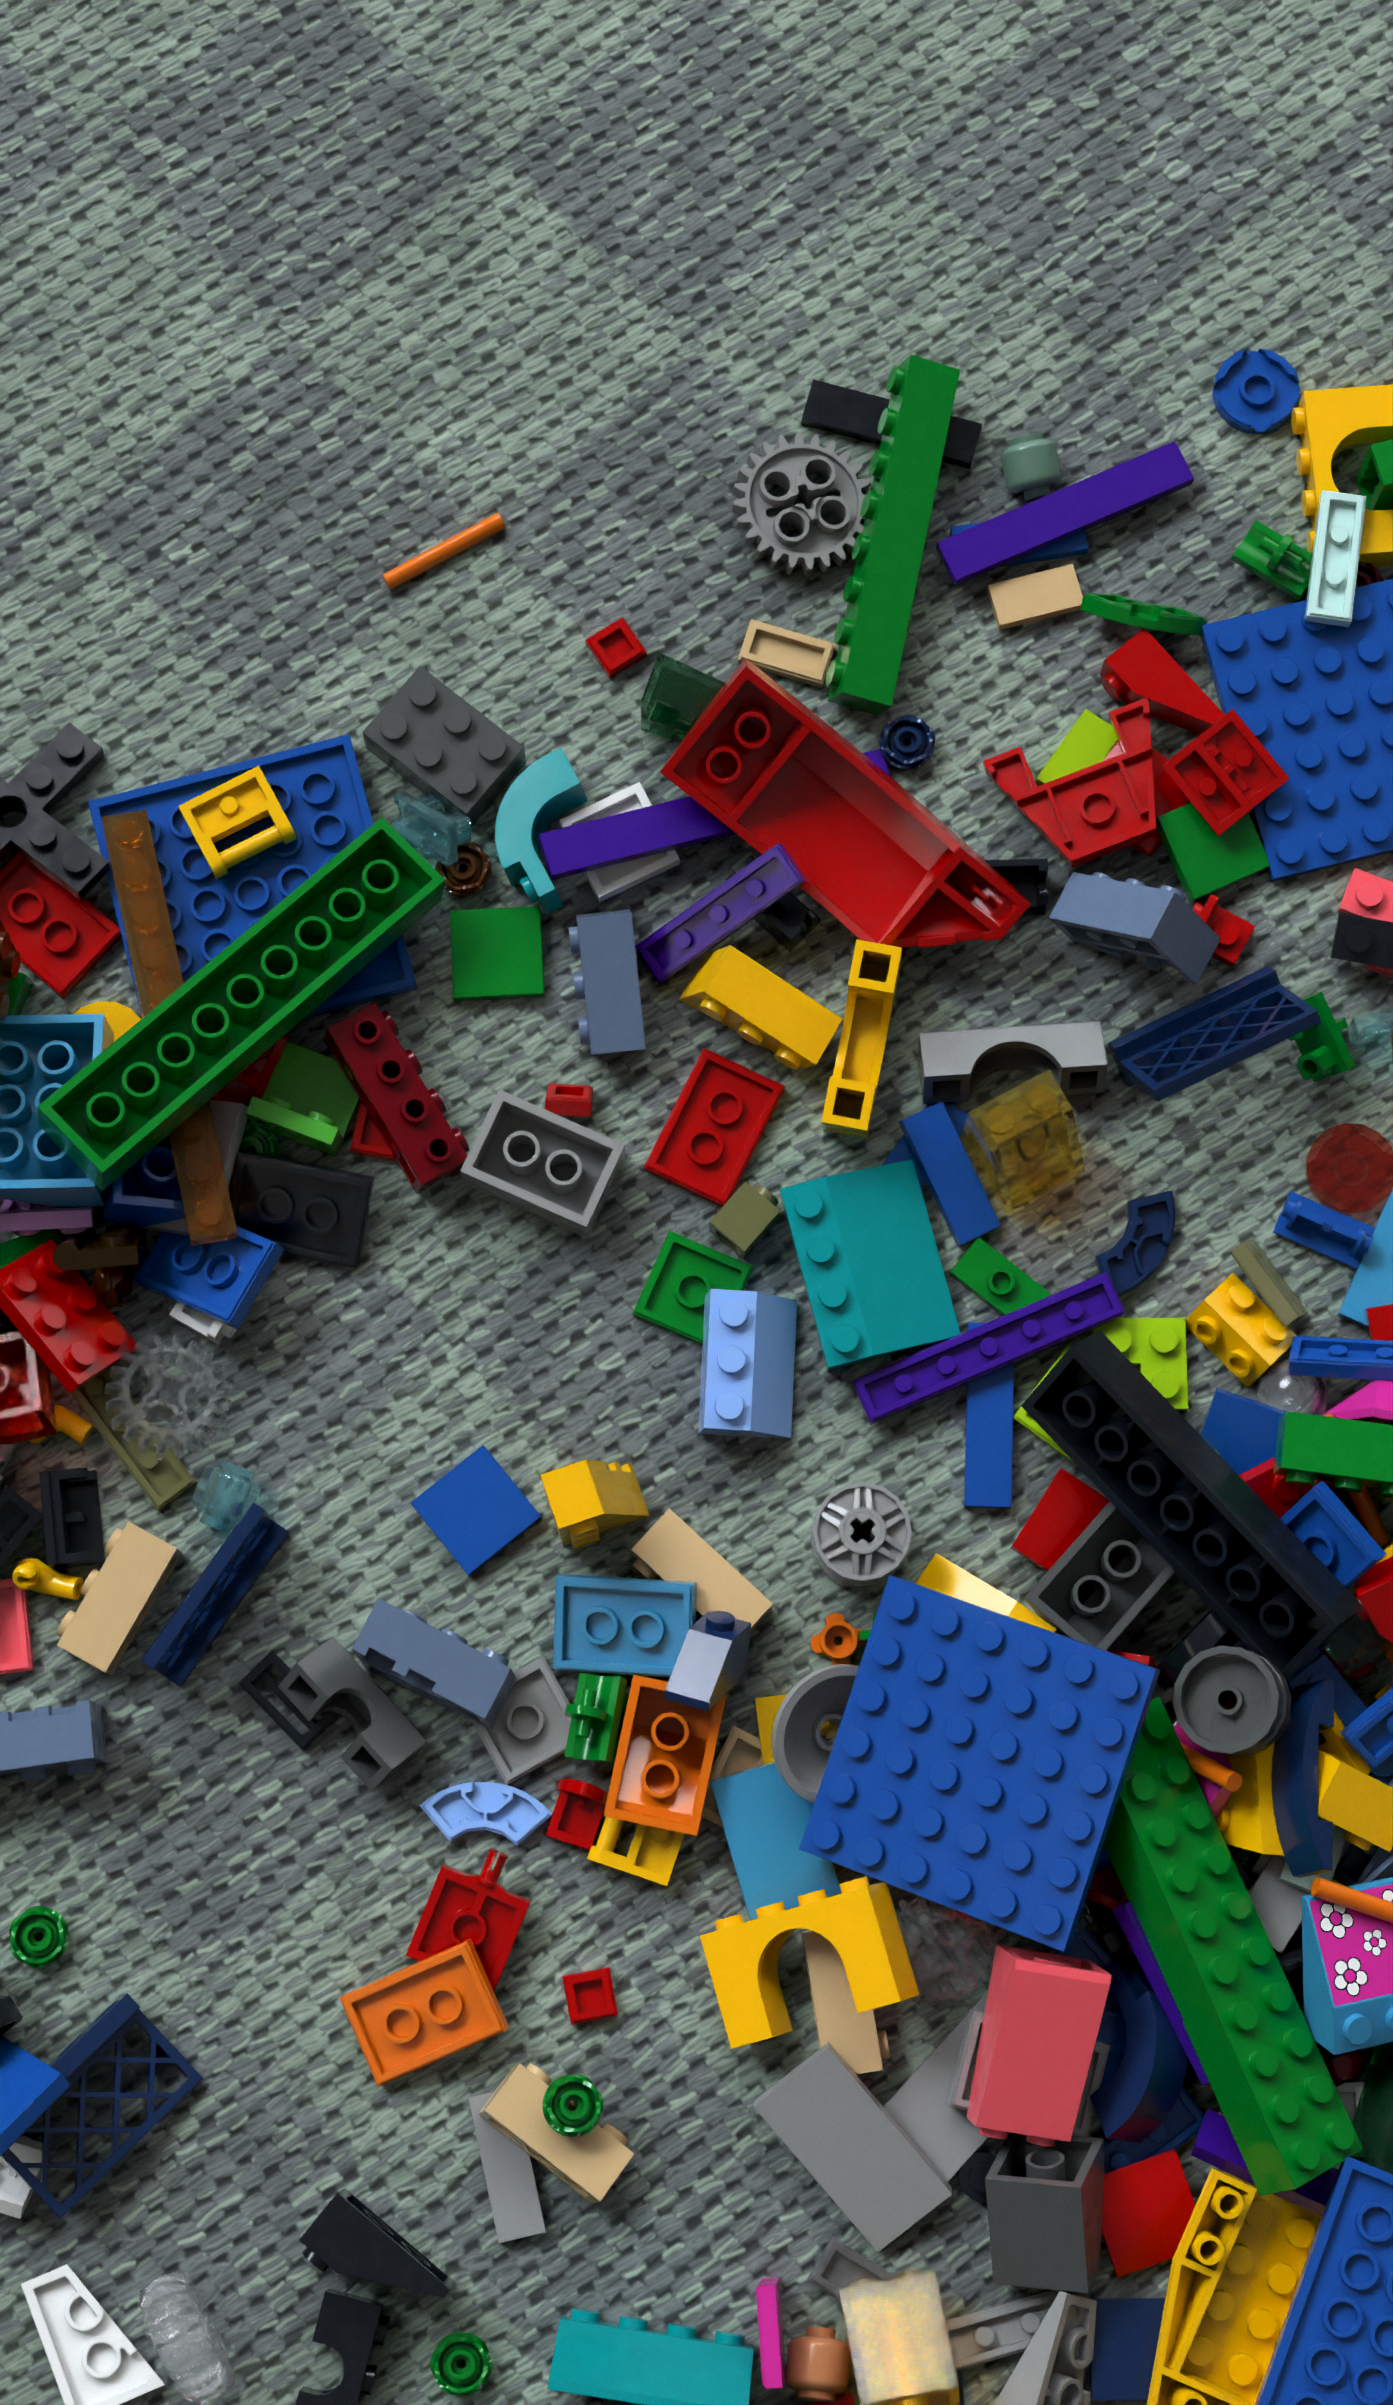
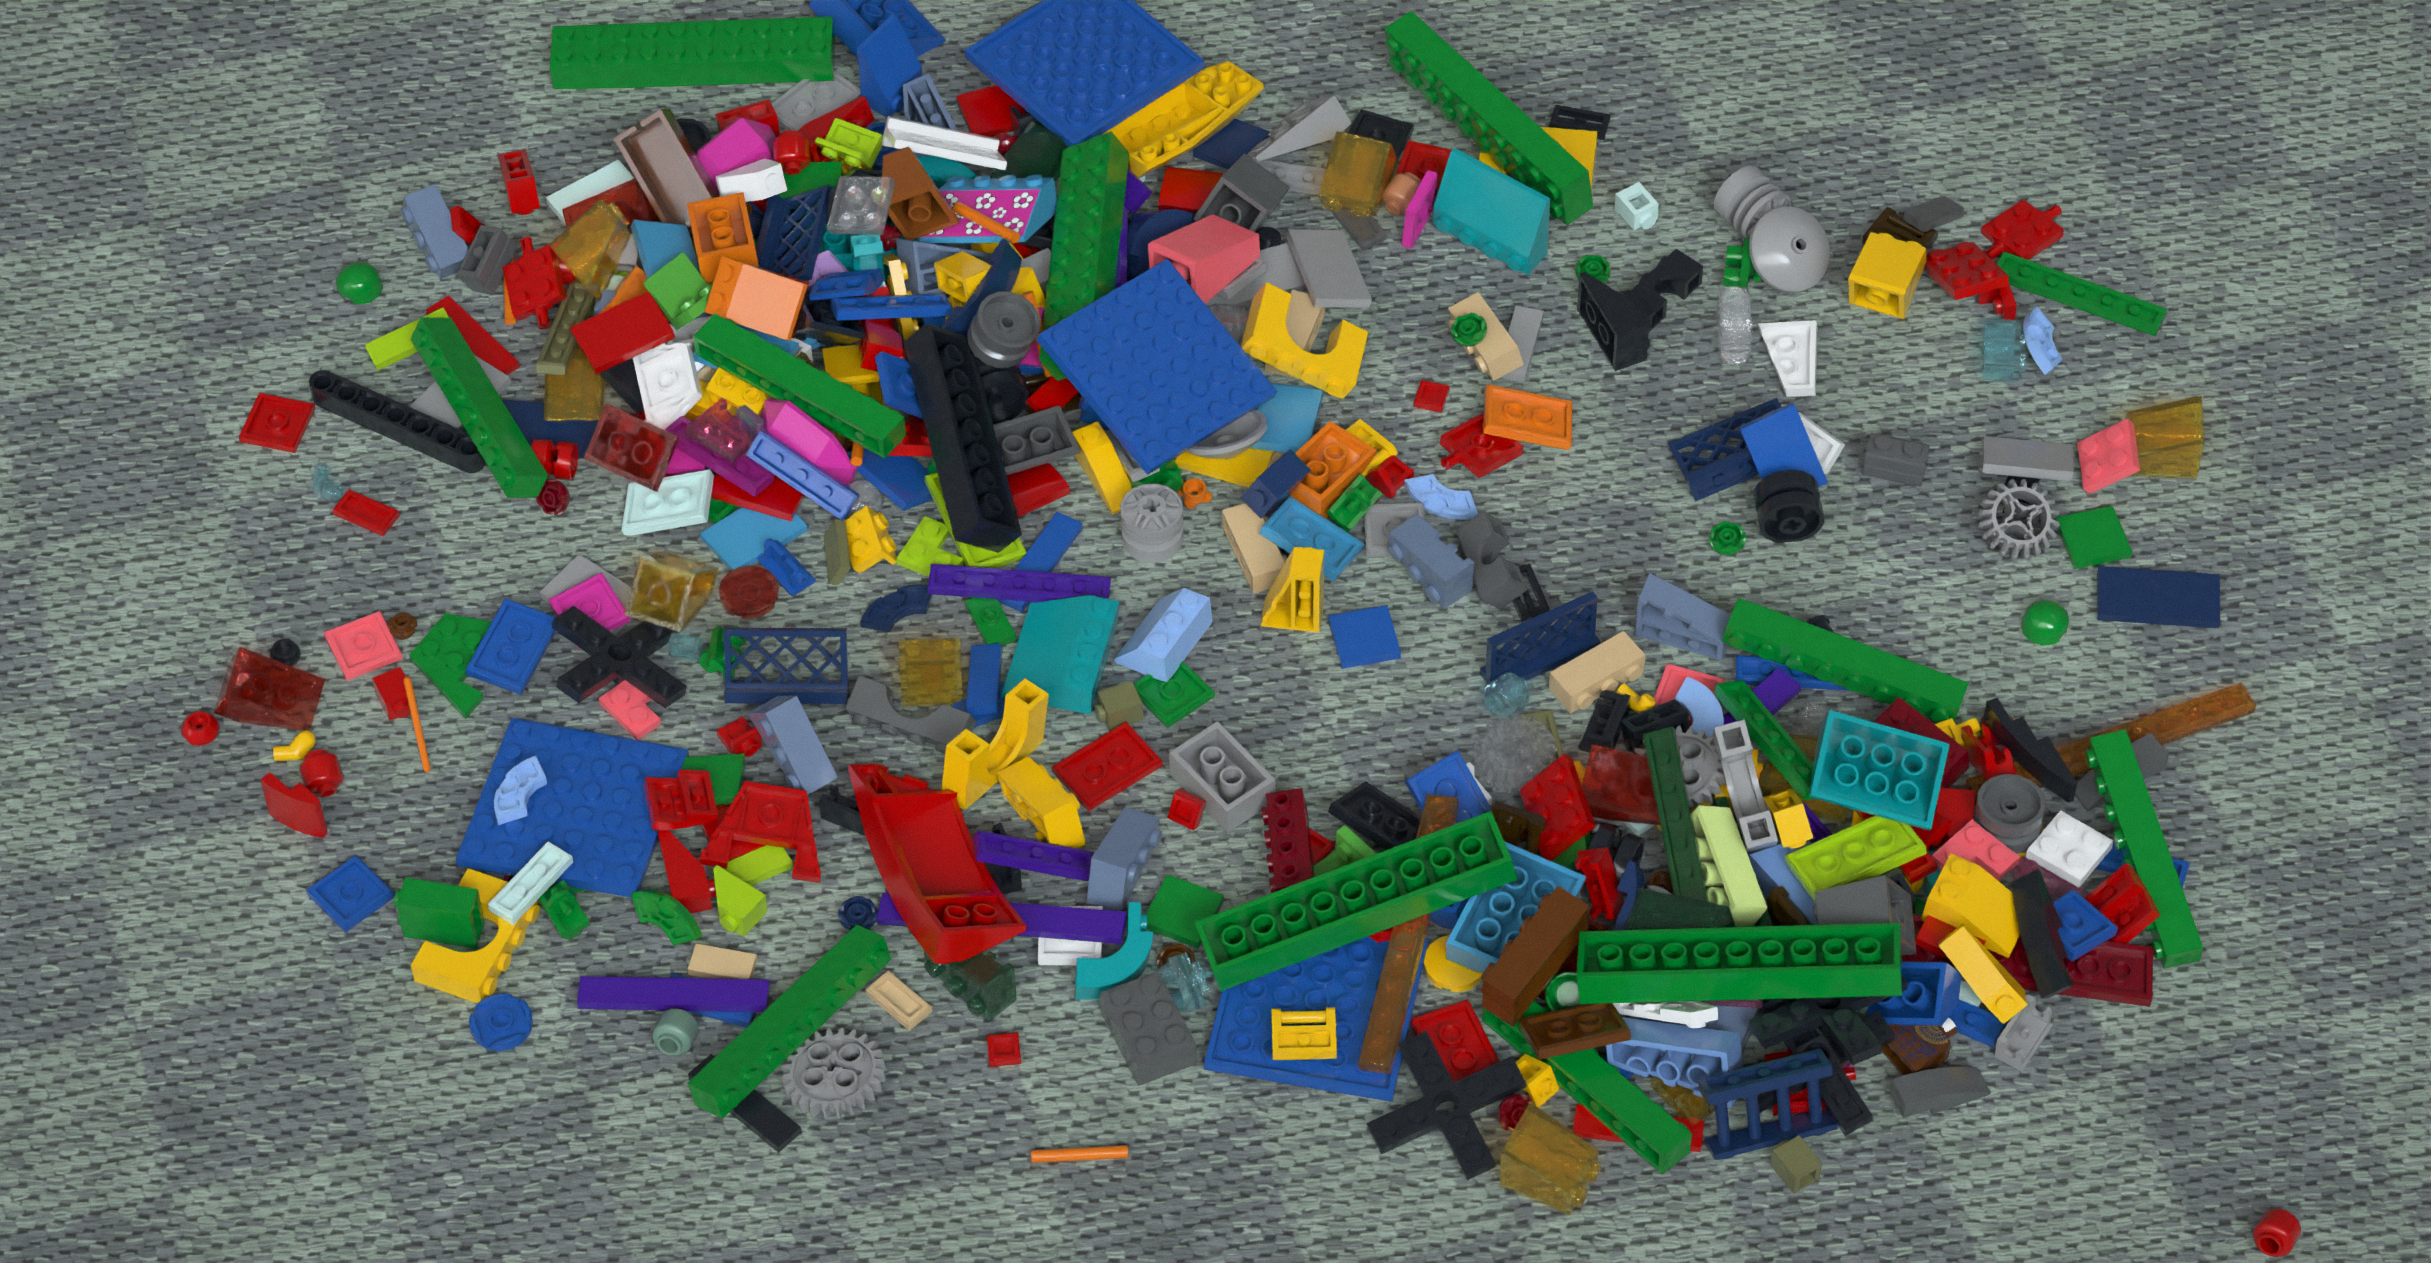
camera: 150 degrees left, 25 degrees down
(1070, 680) = (738, 902): none -> lime slope

